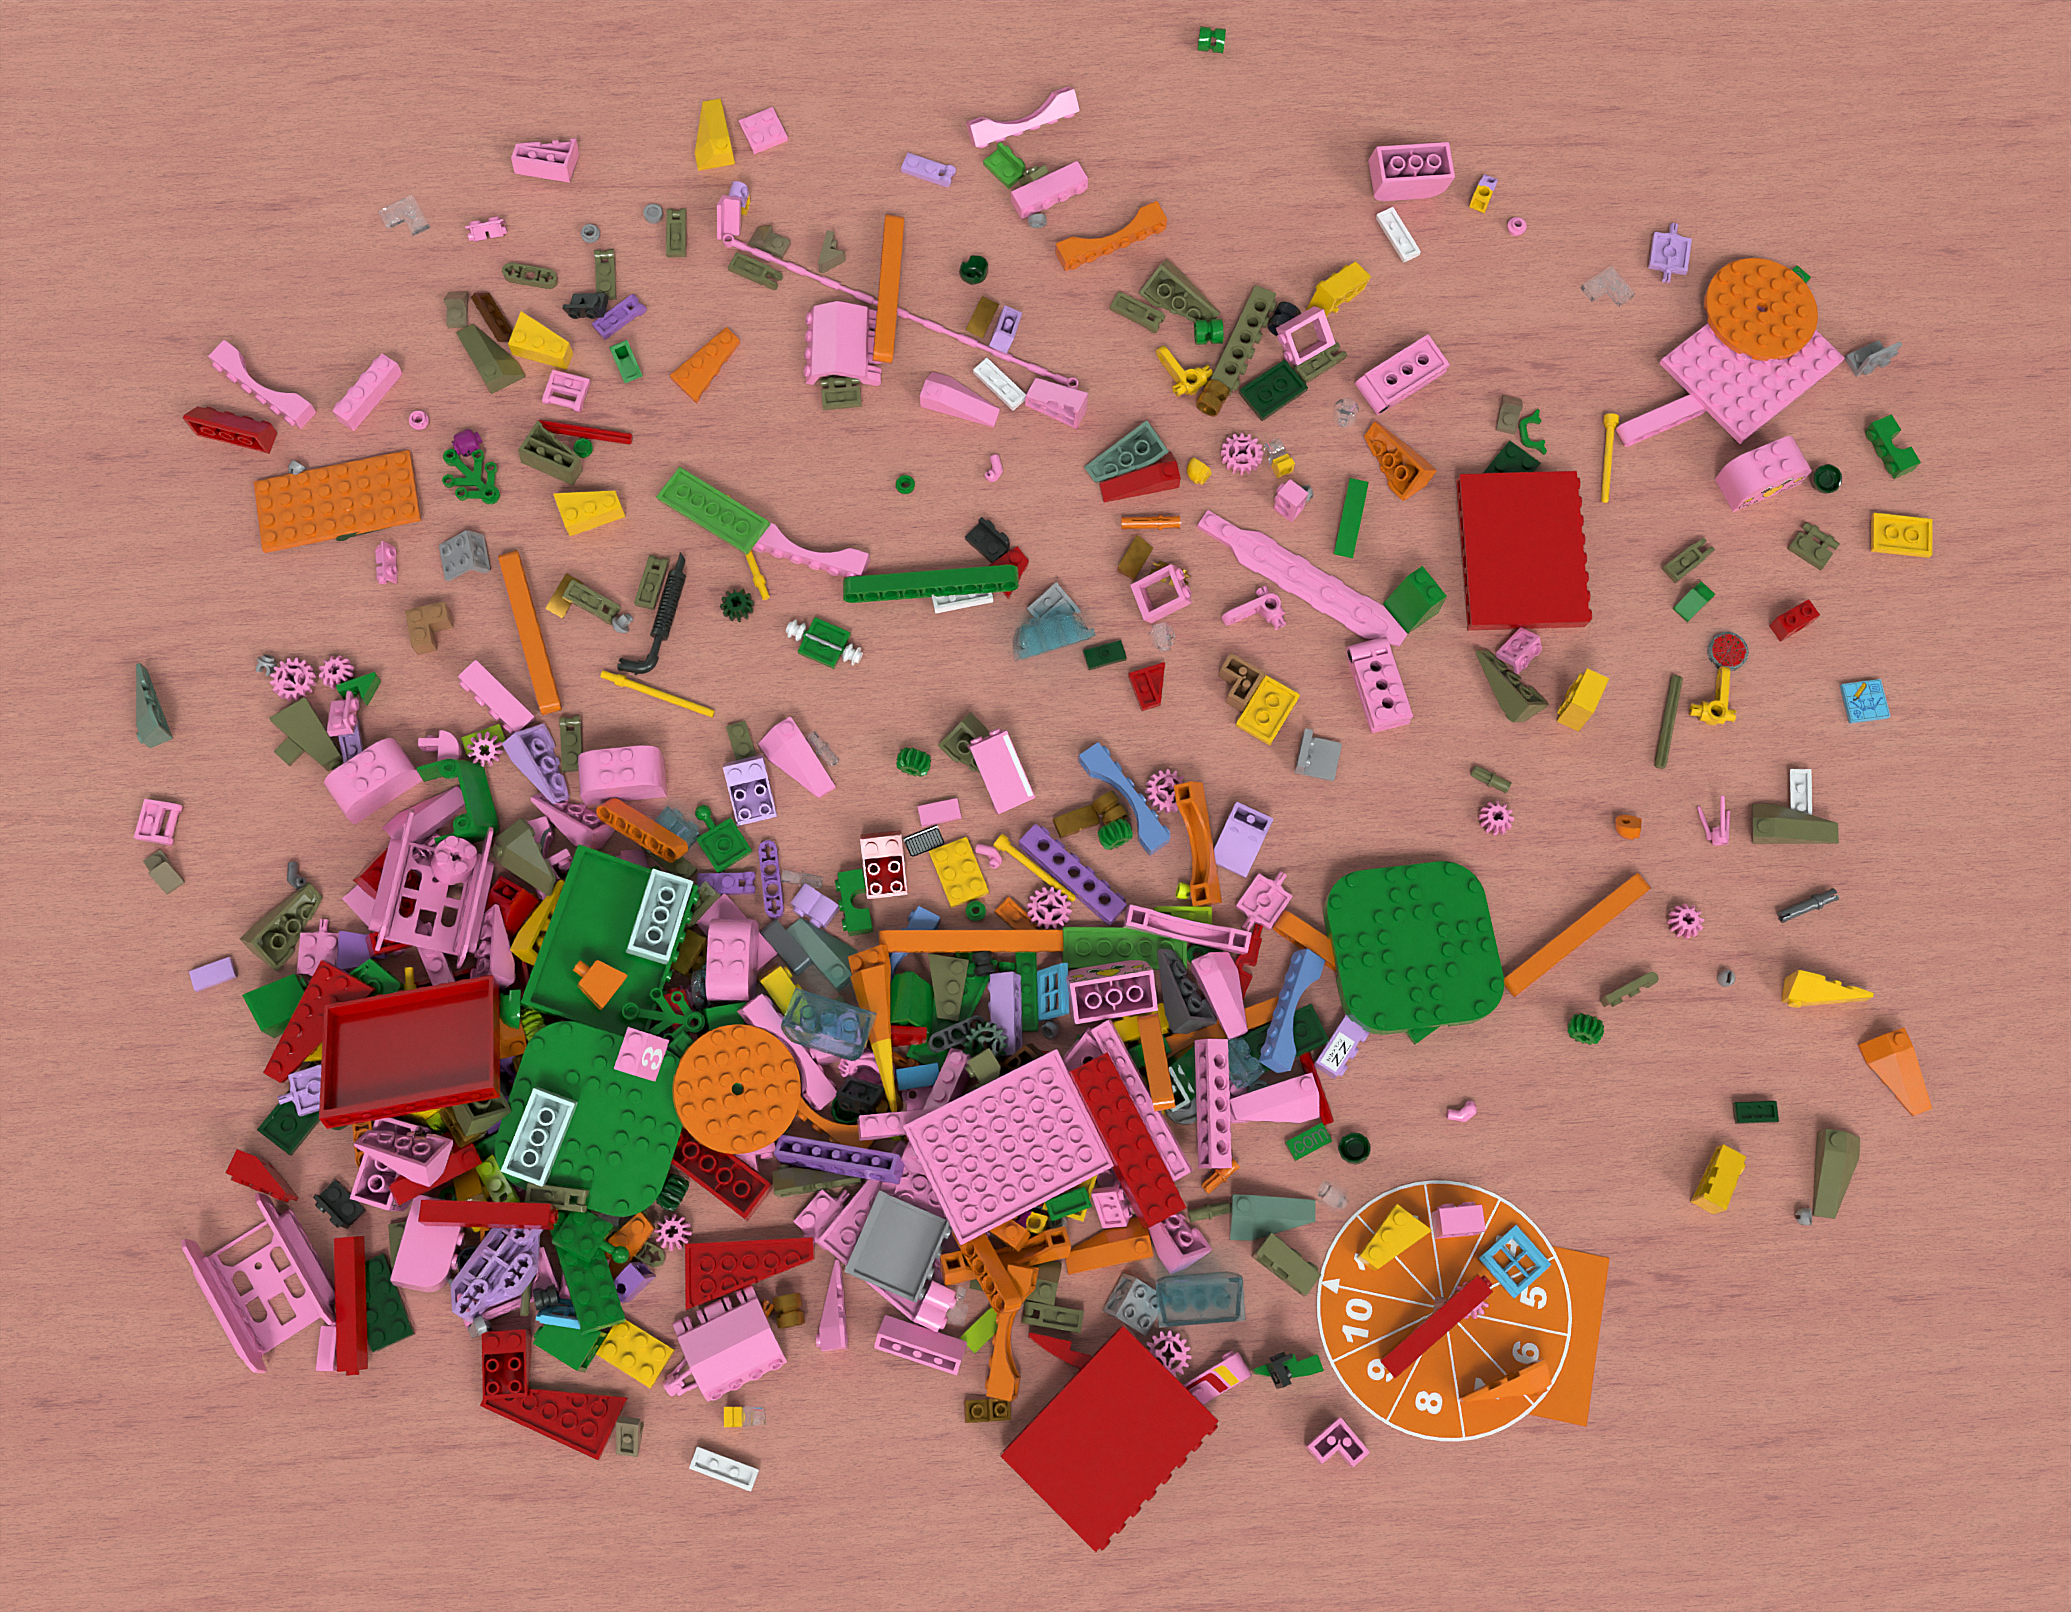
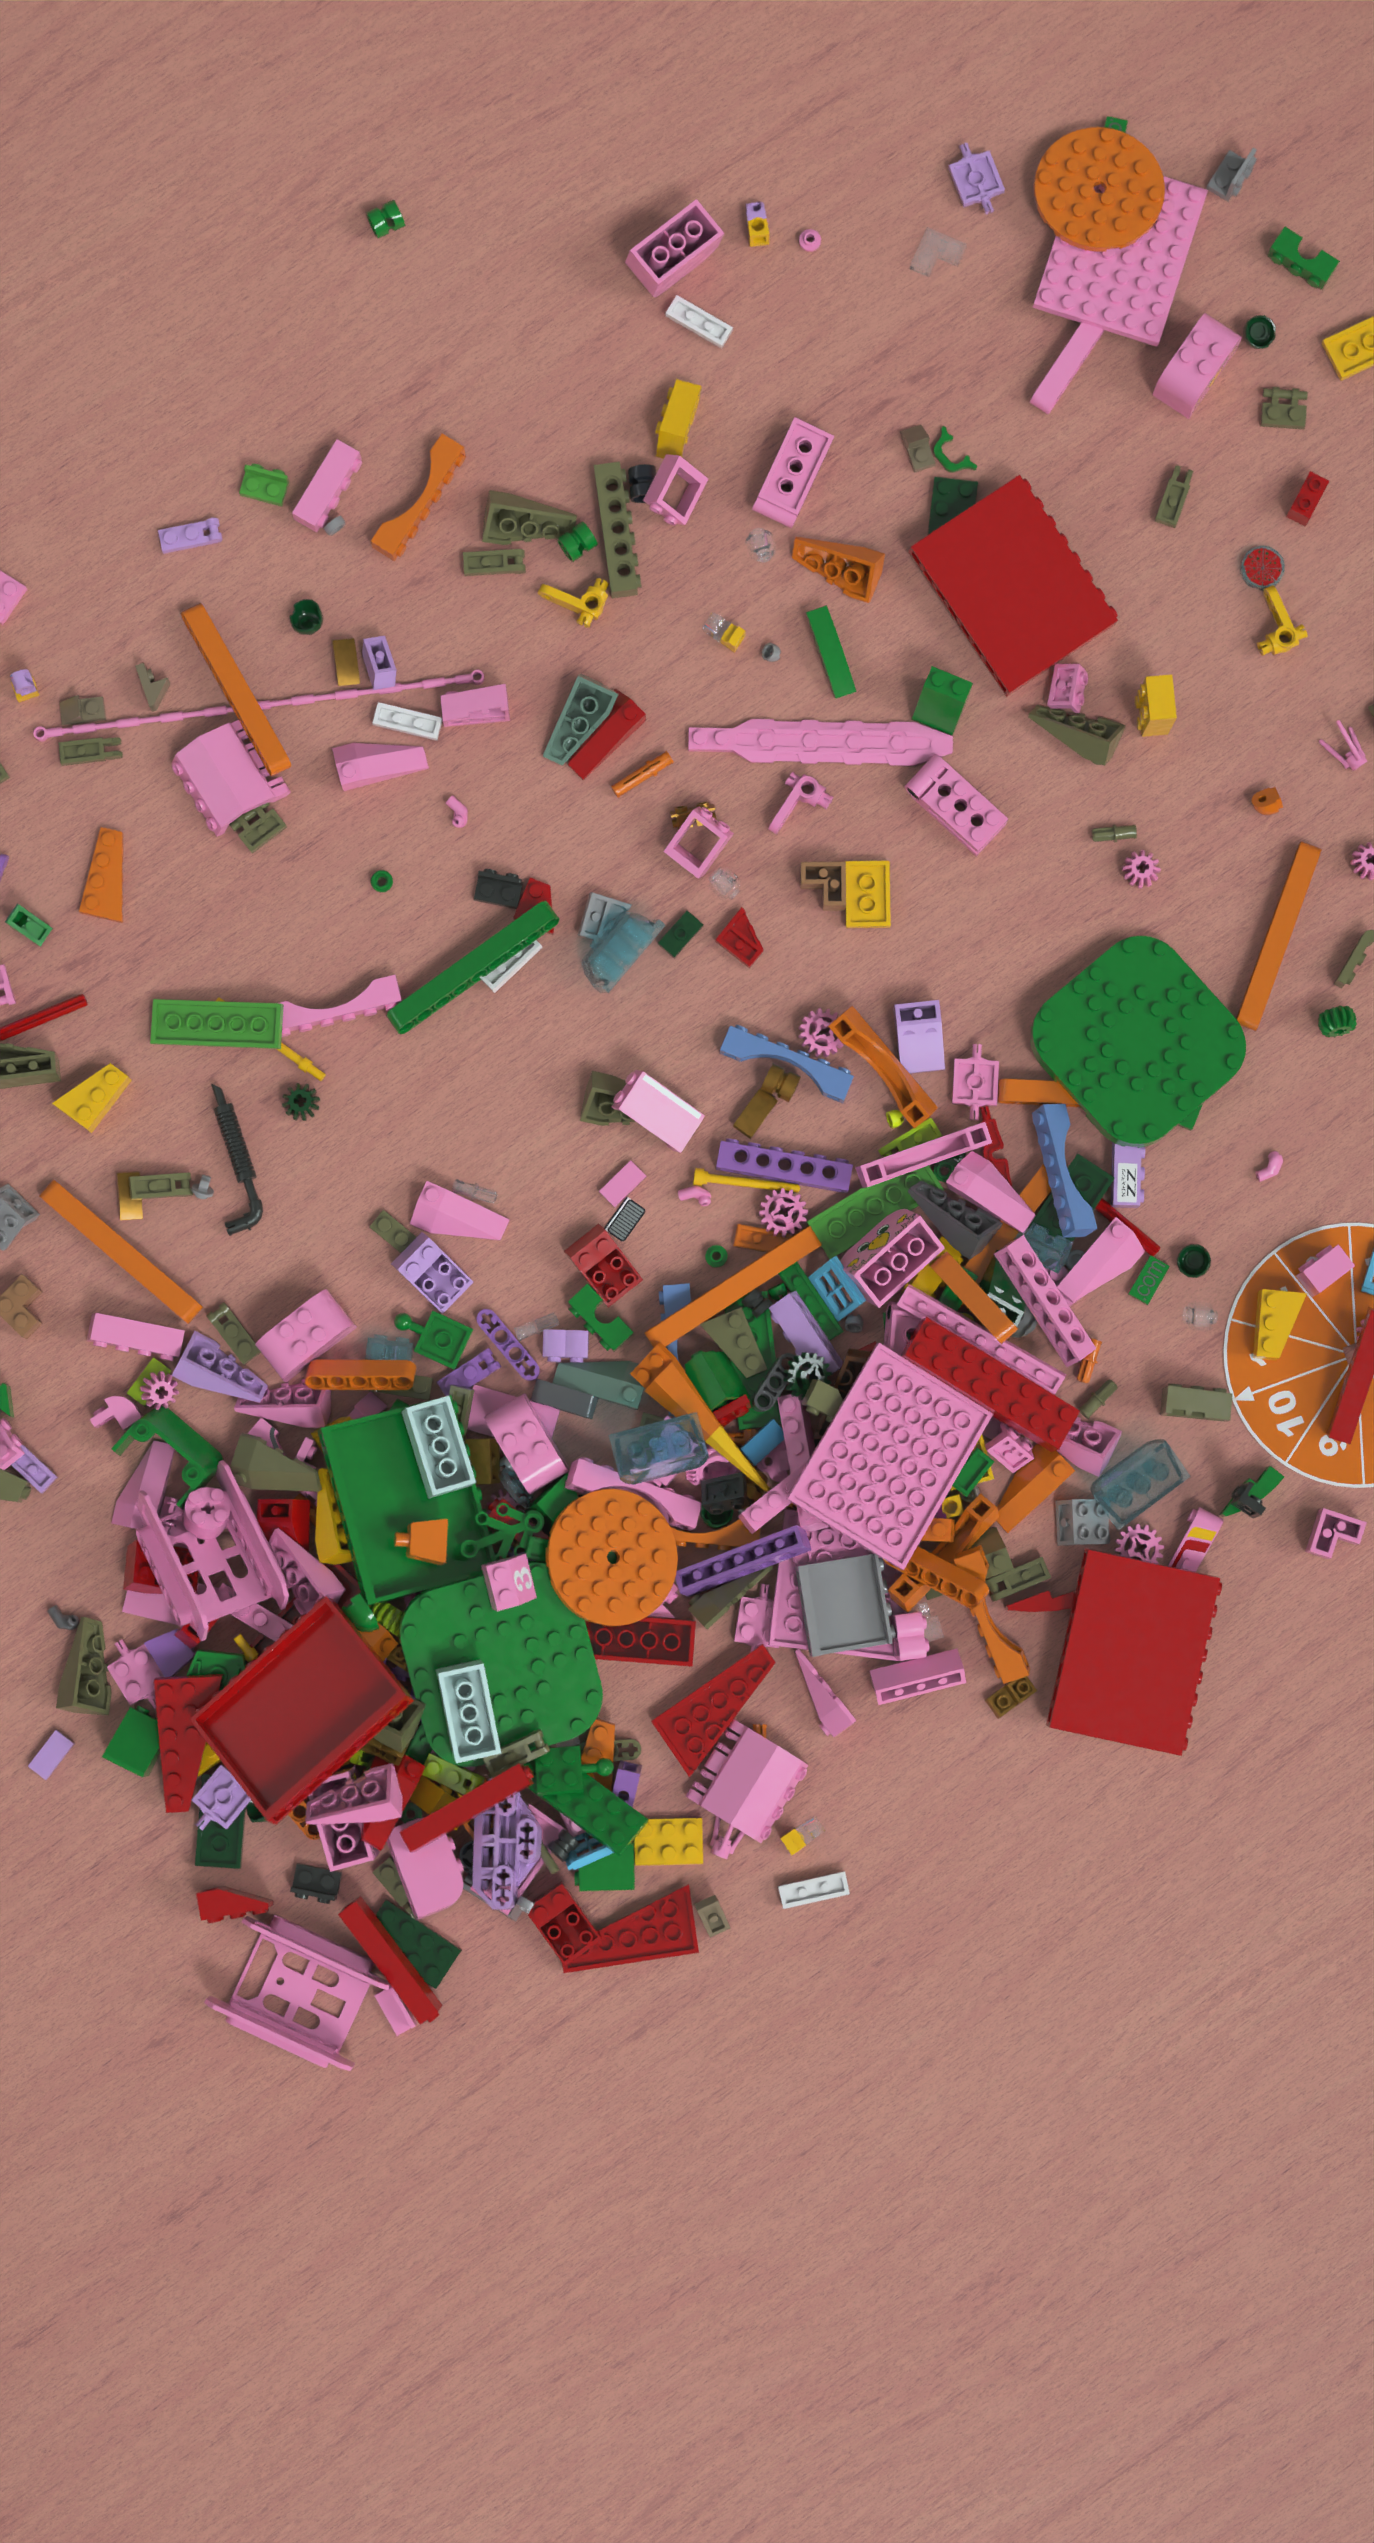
camera: 30 degrees left, 10 degrees up
(372, 779) = (74, 1485): bright pink brick -> none
(583, 448) = (44, 1037): green plate -> none
(621, 681) = (239, 1244): yellow bar -> none
(651, 582) = (203, 1130): olive plate -> none
(673, 1192) = (612, 1683): dark green gear -> none
(677, 1238) = (625, 1716): bright pink gear -> none
(728, 216) = (28, 710): bright pink panel -> none
(779, 986) = (586, 1440): yellow wedge -> none
(789, 1310) = (782, 1720): pearl gold wheel -> none
(824, 642) = (408, 1087): green plate -> none
(913, 762) = (569, 1151): green gear -> none
(958, 872) = (677, 1229): yellow plate -> none
(981, 1331) = (962, 1630): lime tile -> none
(1032, 174) = (301, 480): olive plate -> none
(1059, 104) = (276, 388): bright pink arch -> none
(1115, 834) = (800, 1104): green gear -> none
(1135, 558) = (649, 819): pearl gold slope -> none
(1198, 471) = (655, 694): yellow piece -> none
(1213, 398) = (624, 612): pearl gold wheel -> none
(1241, 462) = (679, 646): bright pink gear -> none
(1261, 1215) = (1148, 1373): sand green wedge -> none
(1273, 390) = (676, 564): dark green plate -> none
(1290, 500) = (763, 671): bright pink brick -> none
(1317, 757) = (941, 911): light grey bracket -> none
(1319, 363) = (704, 509): olive hinge -> none
(1610, 422) = (1021, 398): yellow piece -> none
(1668, 722) = (1246, 673): olive axle -> none
(1694, 601) = (1203, 536): green slope -> none

